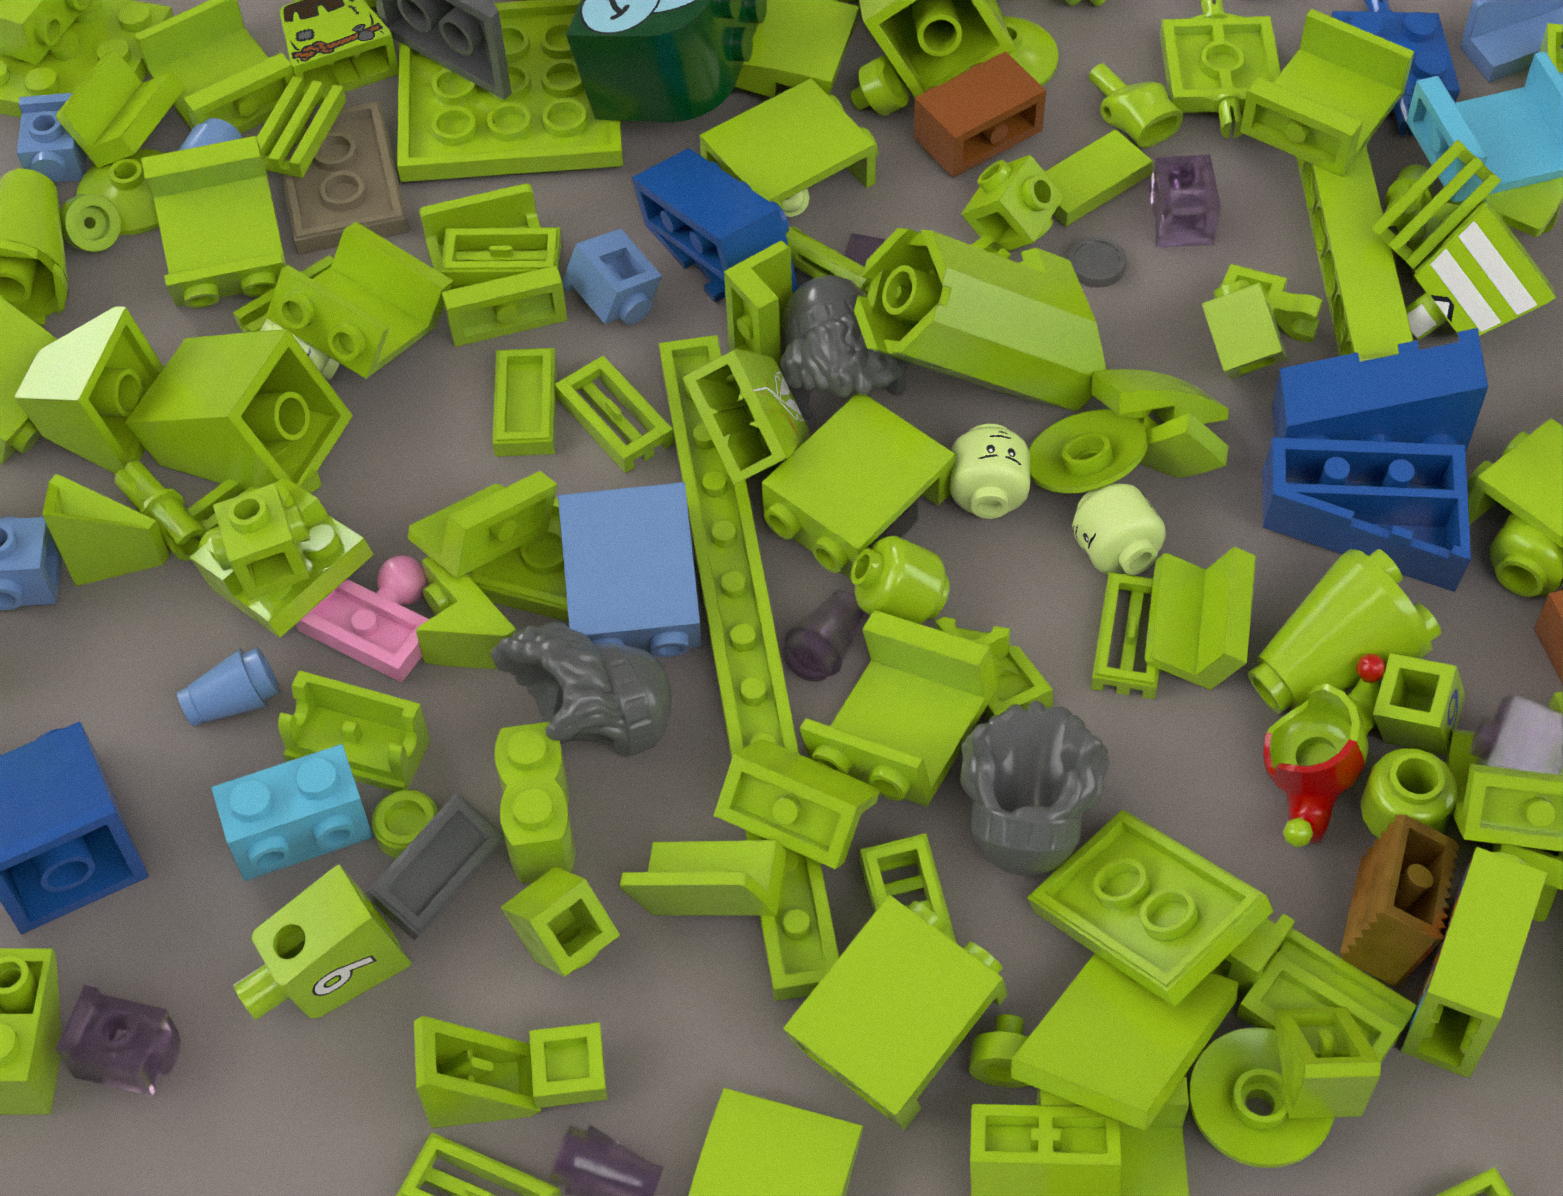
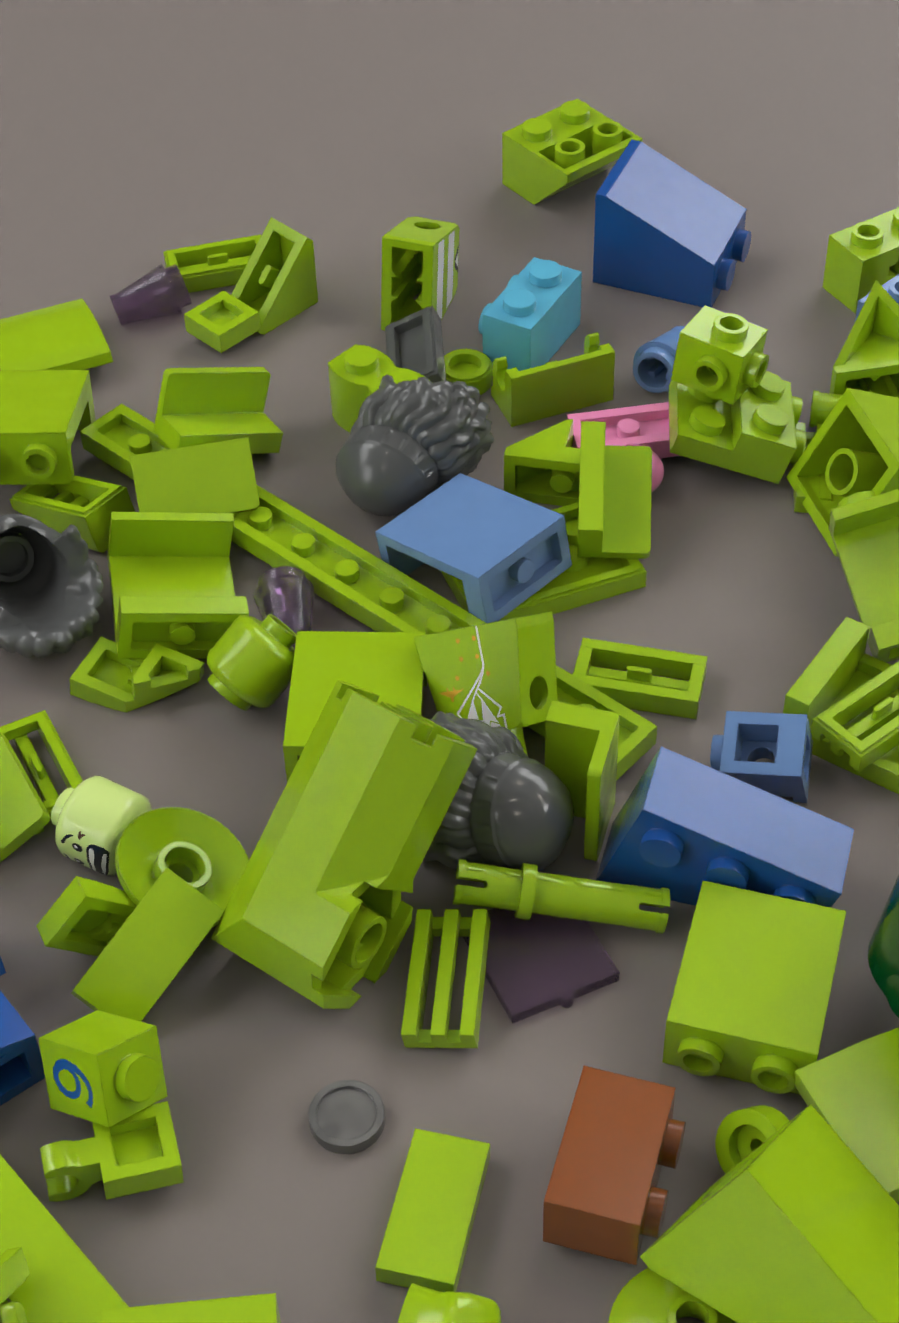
camera: 140 degrees right, 10 degrees down
(94, 1047) = (495, 201): clear purple brick -> none
(525, 402) = (735, 652): lime tile -> none
(560, 921) = (293, 352): lime brick -> none
(990, 471) = (248, 788): yellowish green head -> none
(1013, 203) = (469, 1071): lime brick -> none
(1184, 200) = (294, 1201): clear purple brick -> none

